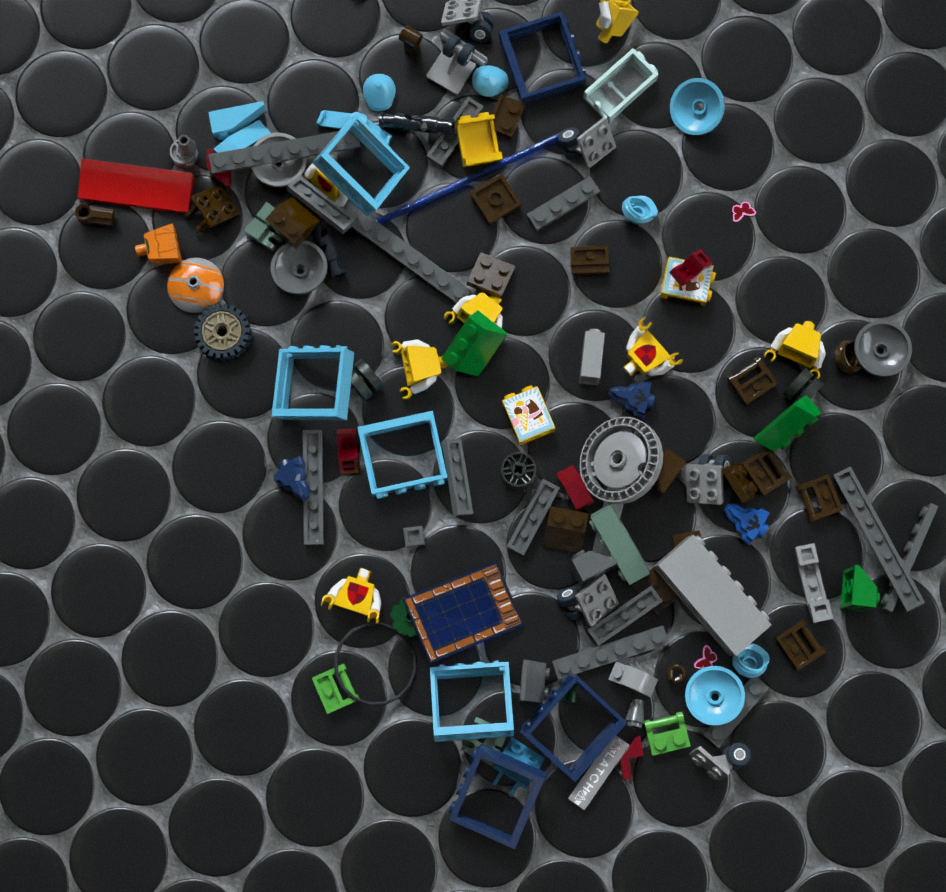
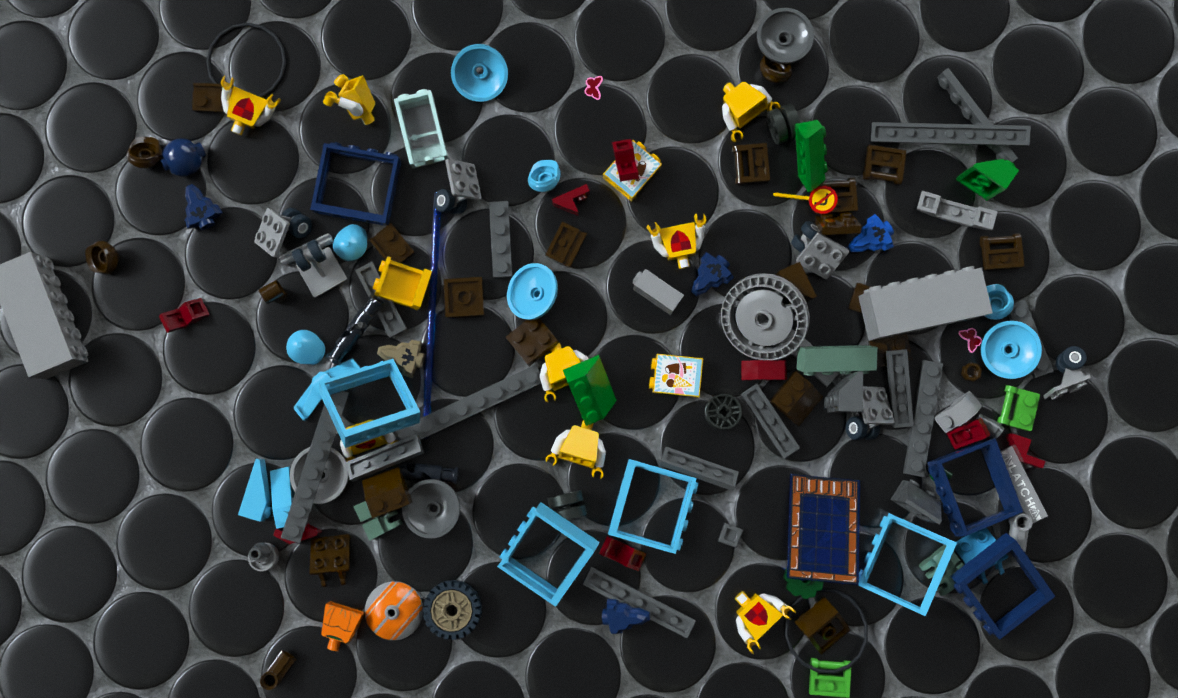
camera: 60 degrees left, 5 degrees up
(135, 186) = (270, 618): red arch -> none
(377, 658) = (822, 625): none -> dark brown slope
(417, 178) = (406, 356): none -> dark tan rock
(532, 251) = (524, 291): none -> medium azure dish
(553, 792) = (1020, 533): none -> light grey piece
(618, 697) = (968, 433): none -> dark red slope
(629, 240) = (567, 200): none -> dark red slope
(754, 458) = (821, 199): none -> piece

